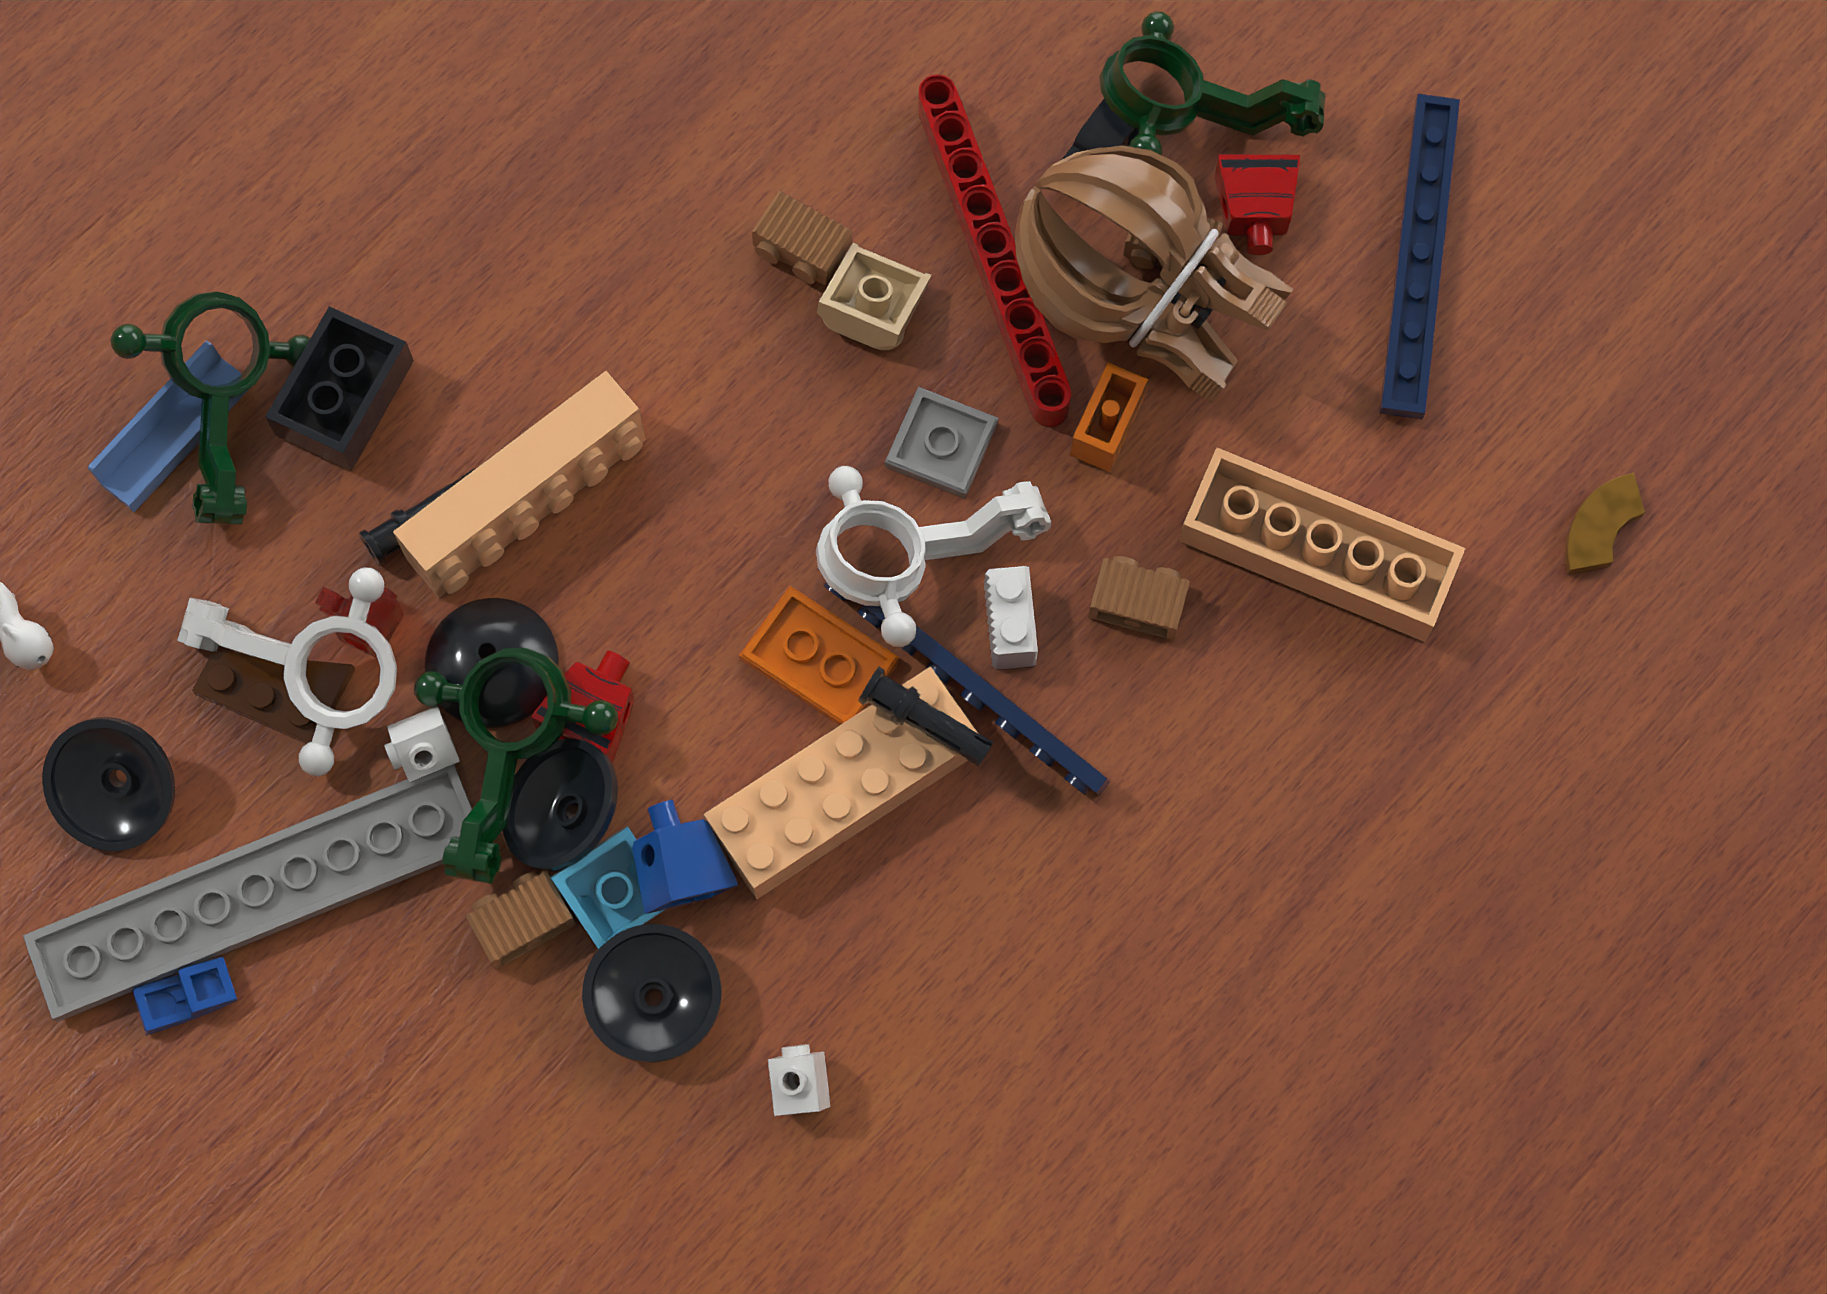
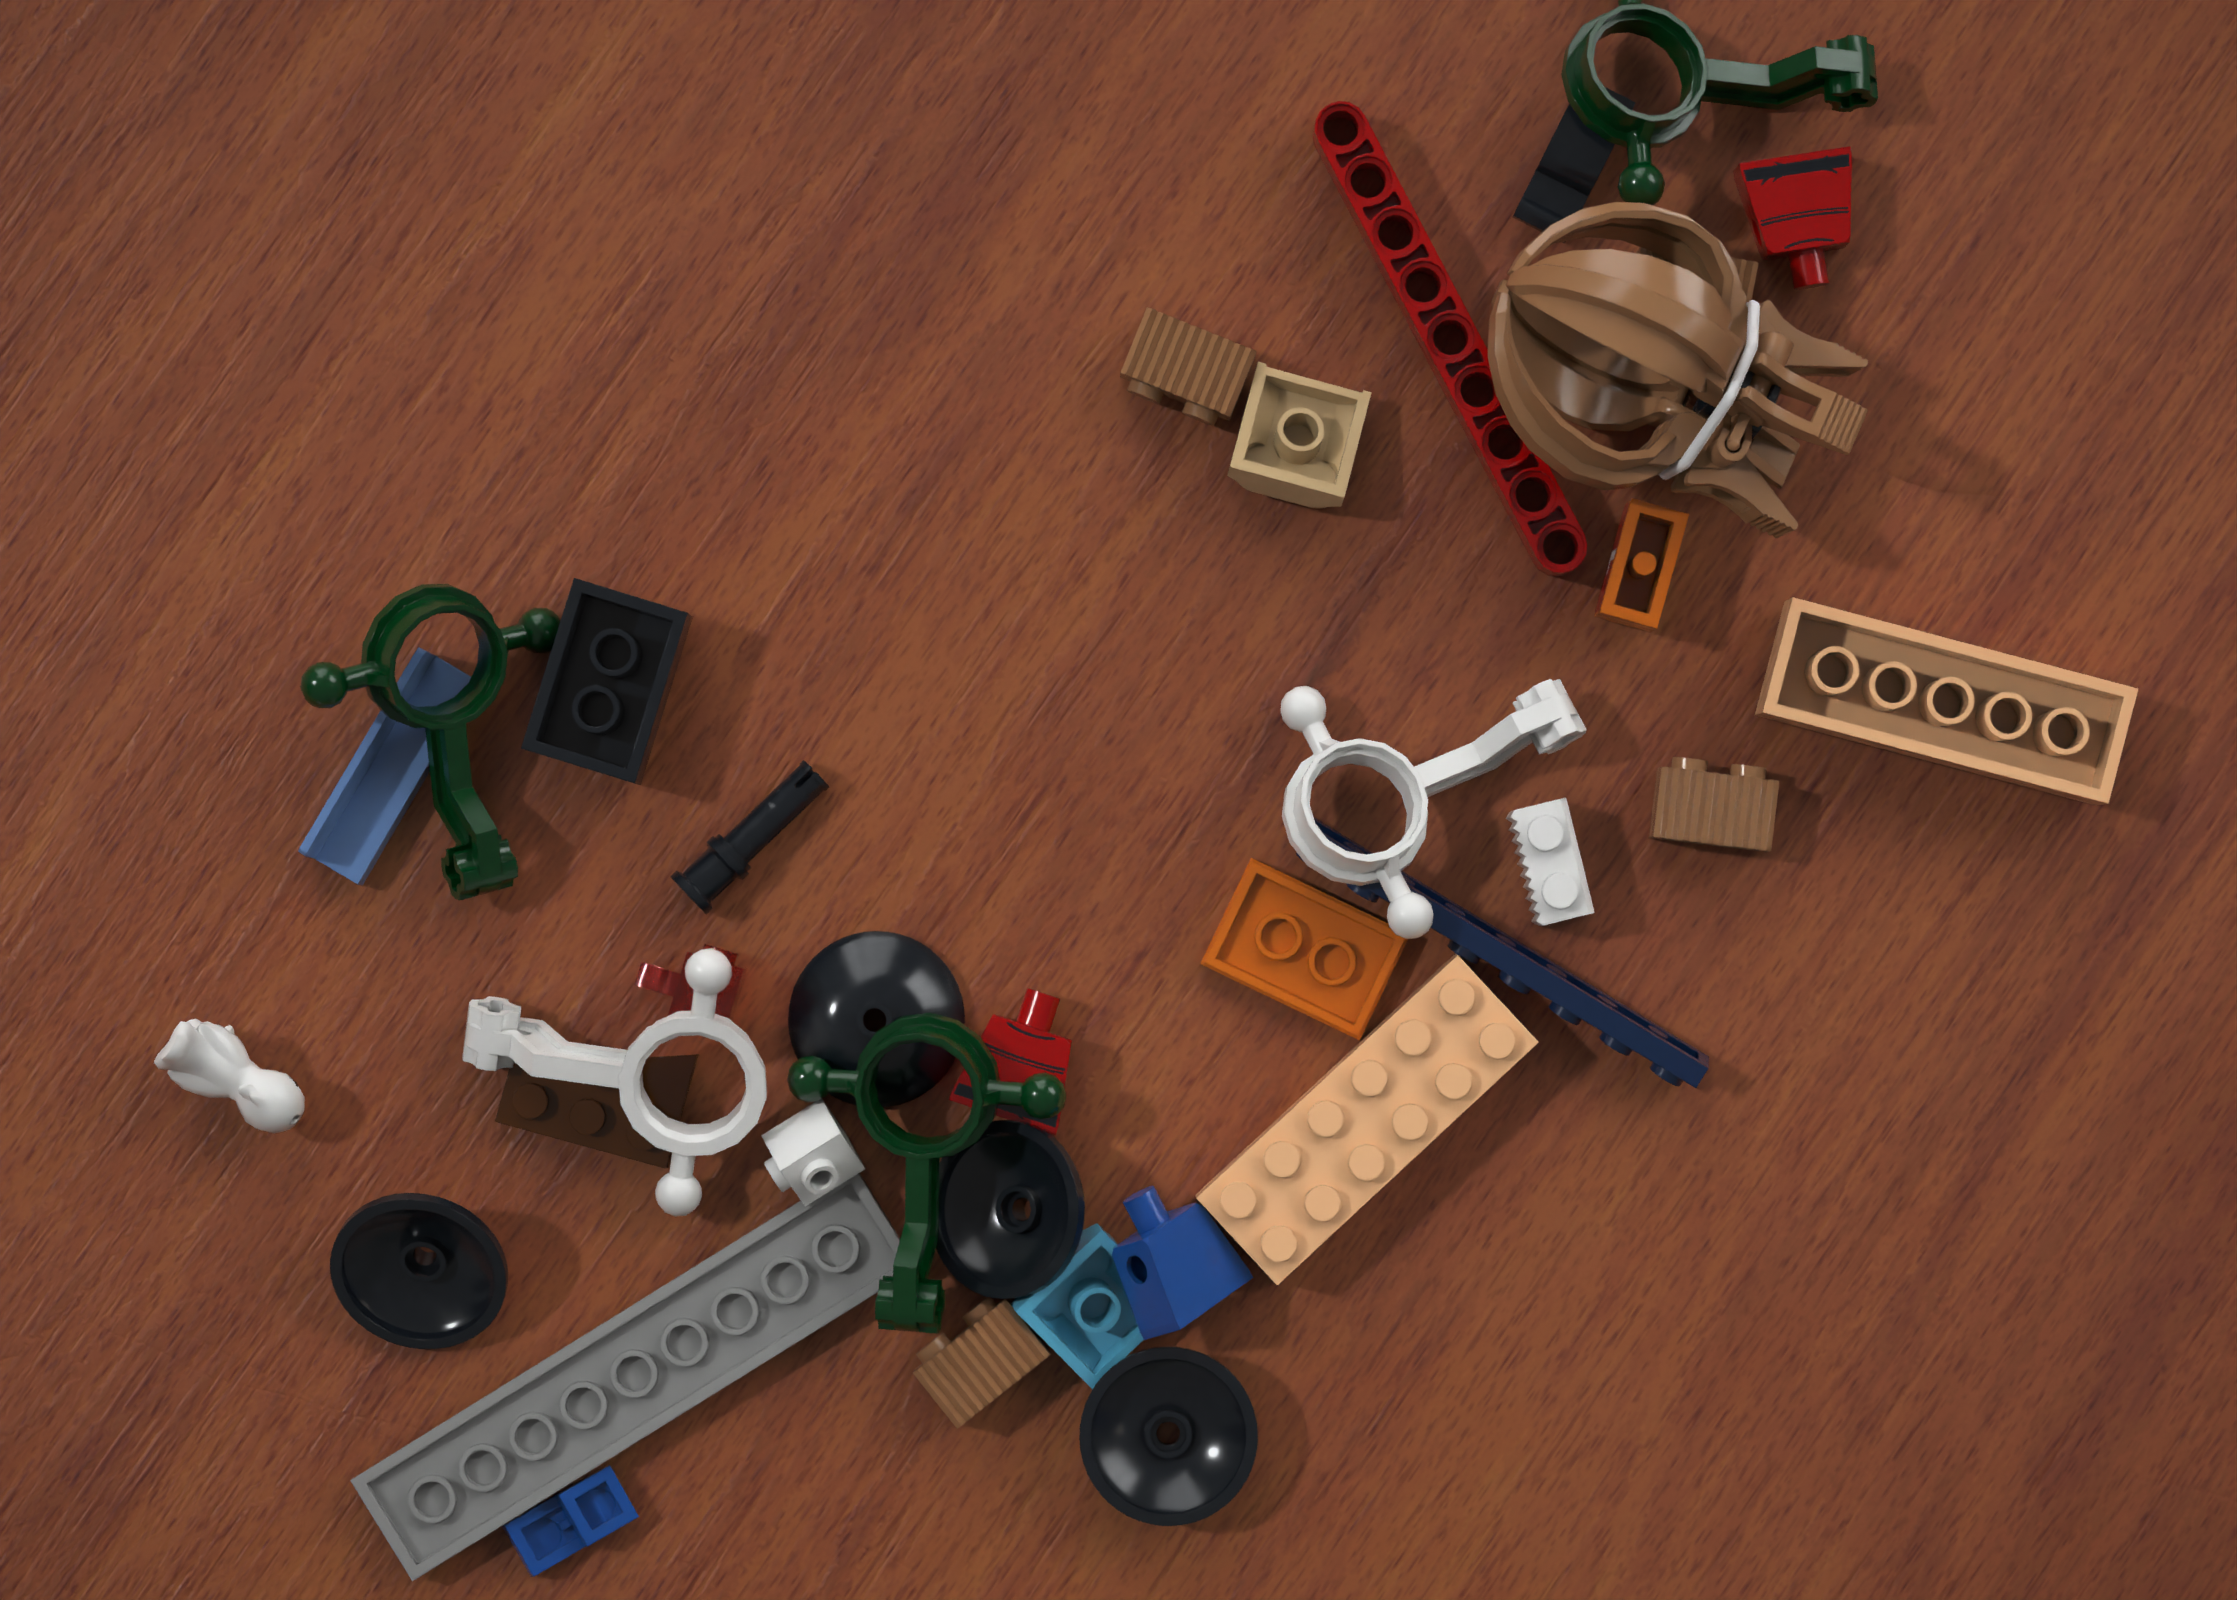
camera: 10 degrees left, 15 degrees up
(522, 485) = (877, 784): light nougat brick -> none
(797, 1096) = (1372, 1518): white brick -> none
(908, 708) = (1440, 1027): black pin -> none
(941, 442) = (1420, 624): light grey tile -> none
(1419, 257) = (2029, 257): dark blue plate -> none

